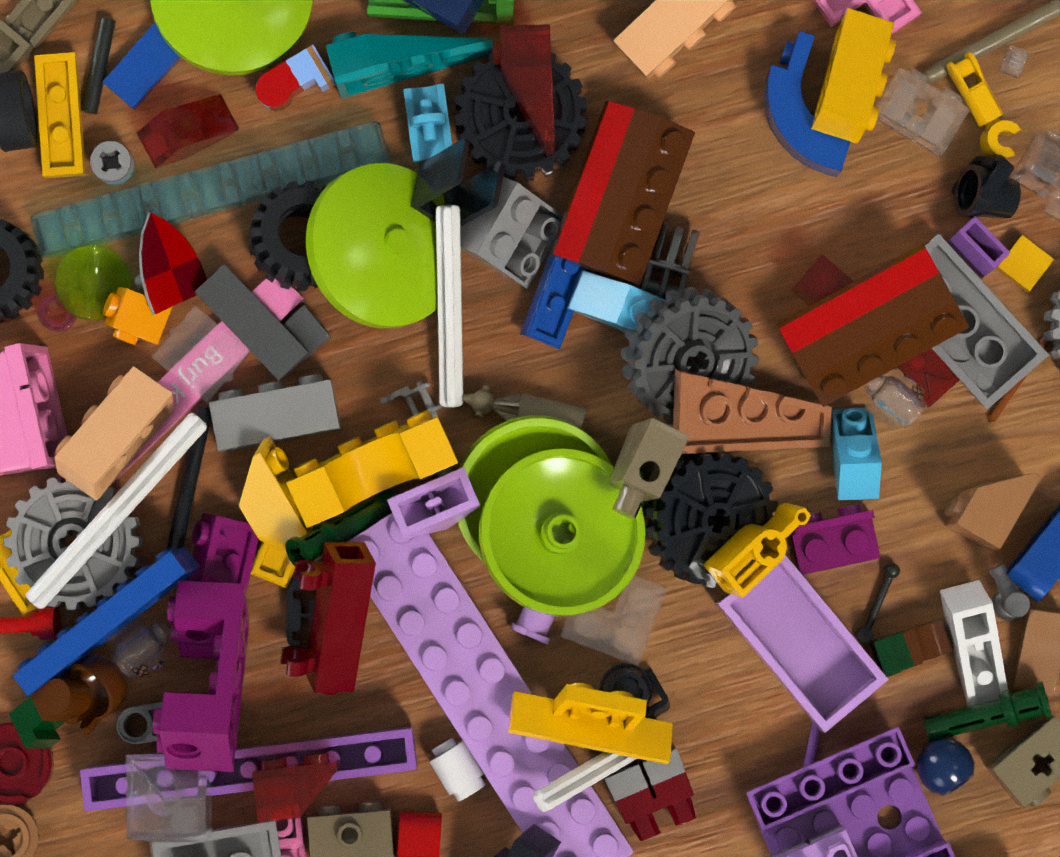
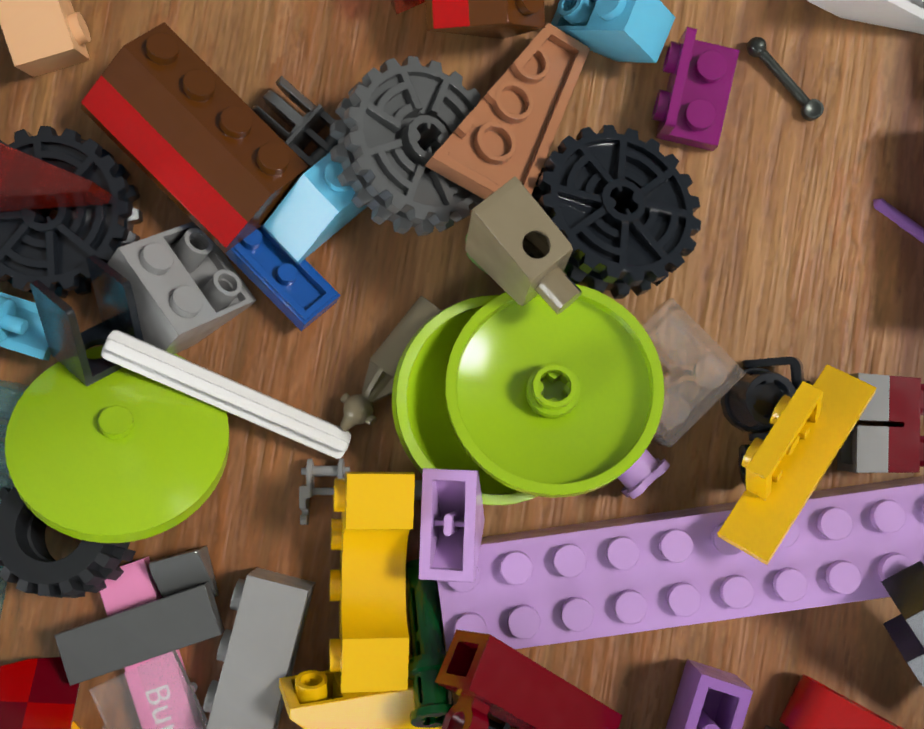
camera: 65 degrees left, 0 degrees up
(457, 769) = (763, 637): white brick -> none
(579, 779) = (858, 511): white axle -> none
(755, 551) = (679, 173): yellow piece -> none
(804, 645) = (801, 174): lavender piece -> none
(910, 647) = (853, 64): leg -> none

